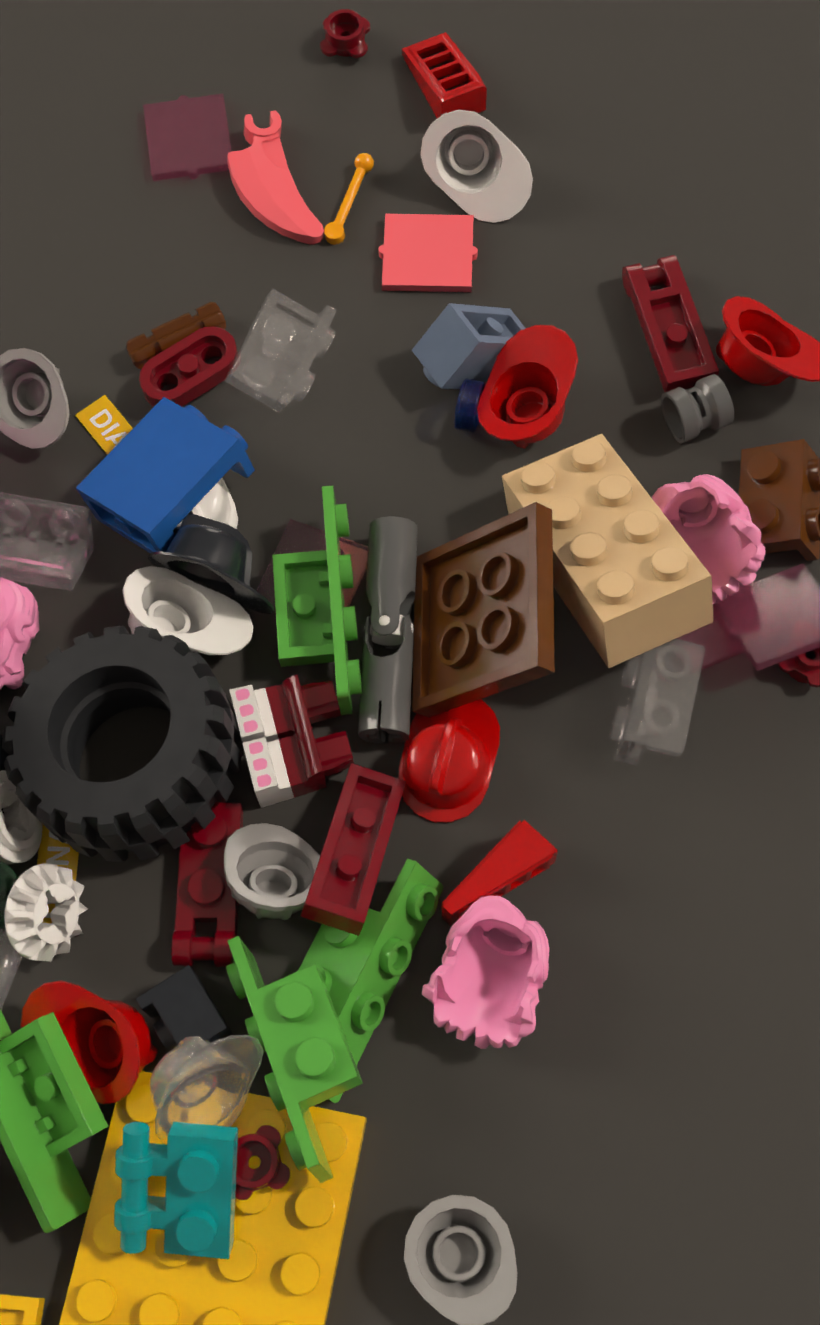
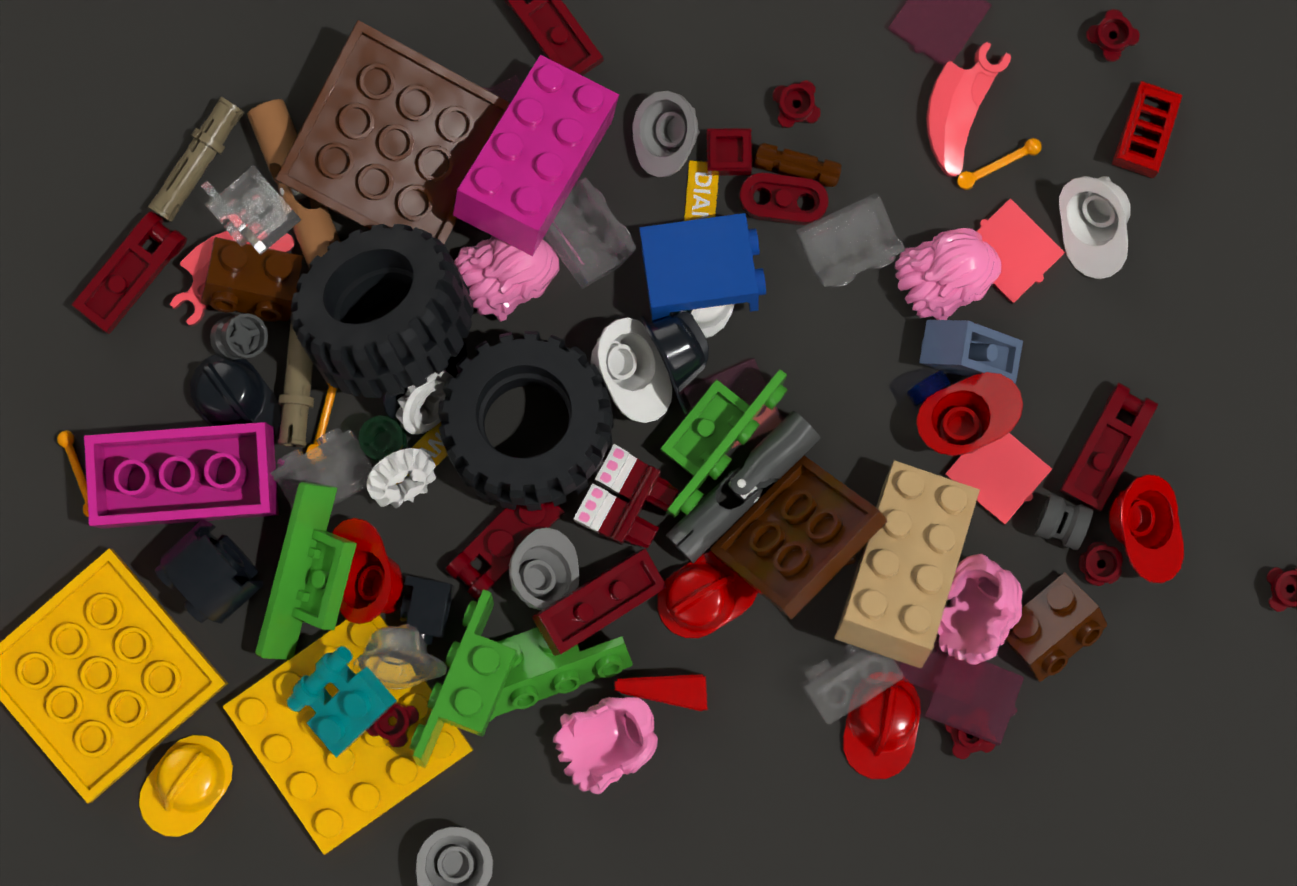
camera: 45 degrees right, 15 degrees up
(103, 375) = (729, 151): none -> dark red tile
(123, 279) = (800, 92): none -> dark red plate
(390, 301) = (947, 272): none -> bright pink hair
(610, 410) = (1003, 473): none -> coral piece
(733, 730) = (883, 732): none -> red piece
(766, 404) = (1113, 562): none -> dark red plate

